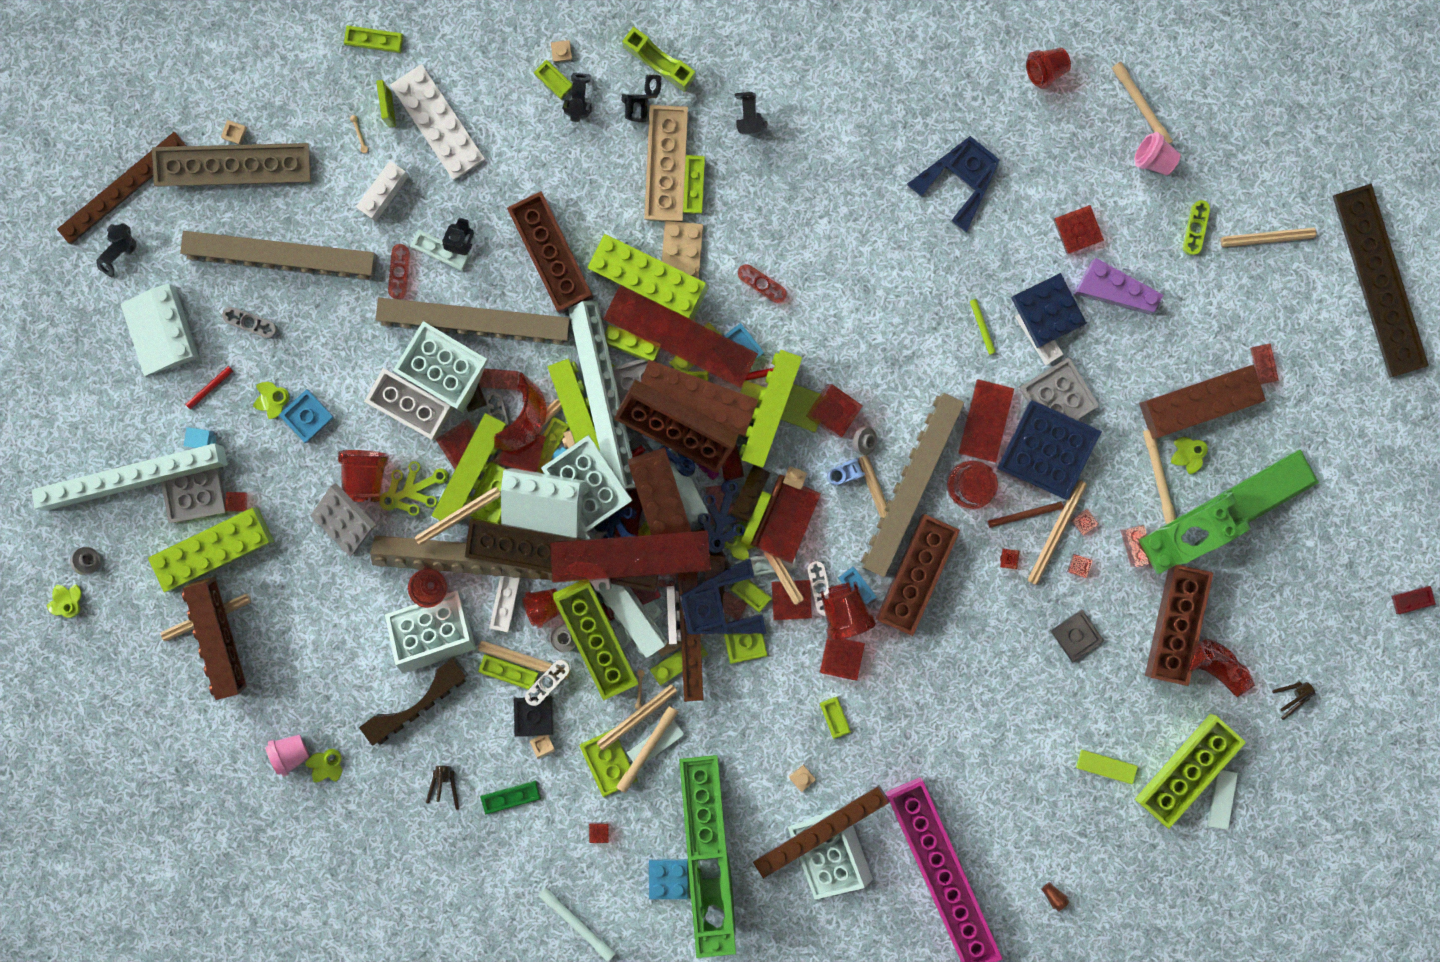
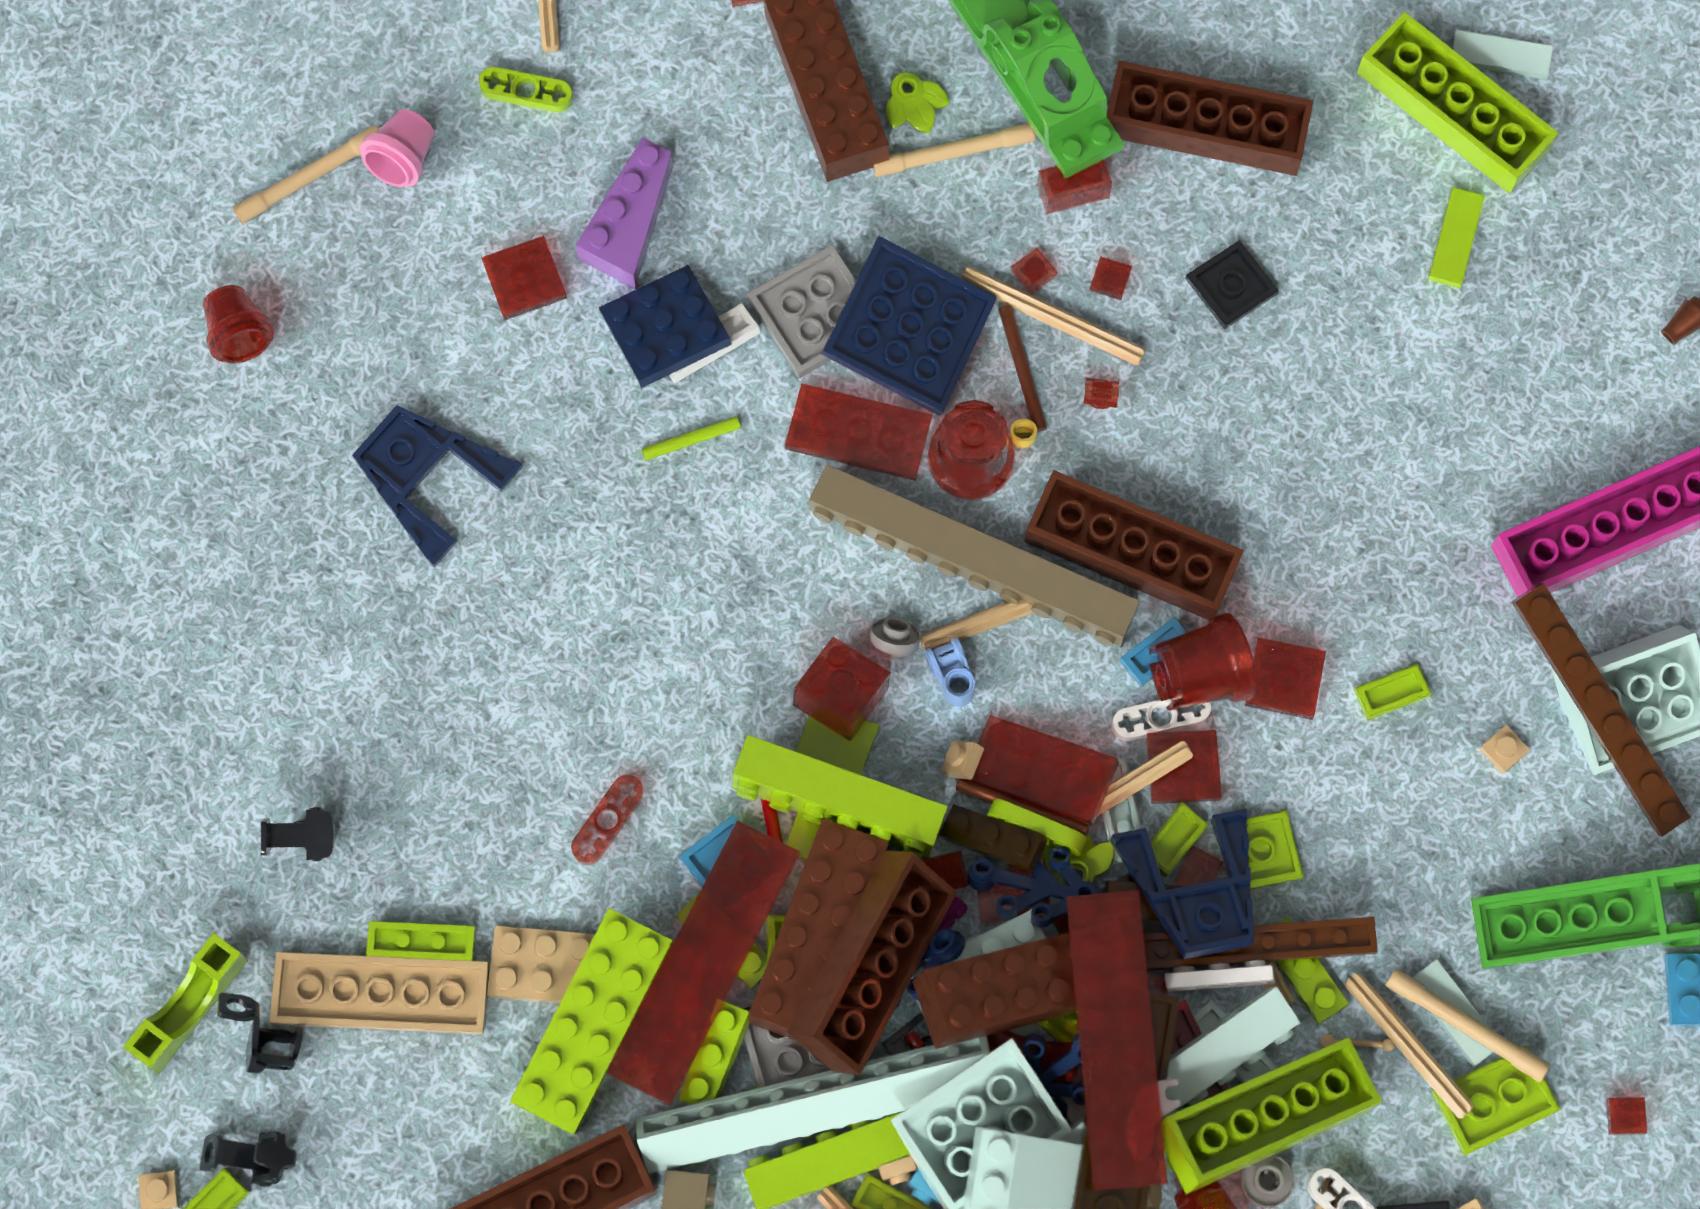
camera: 90 degrees left, 15 degrees down
(988, 514) = (1020, 430): none -> light yellow hinge
(1225, 667) = (1274, 51): clear red windscreen -> none

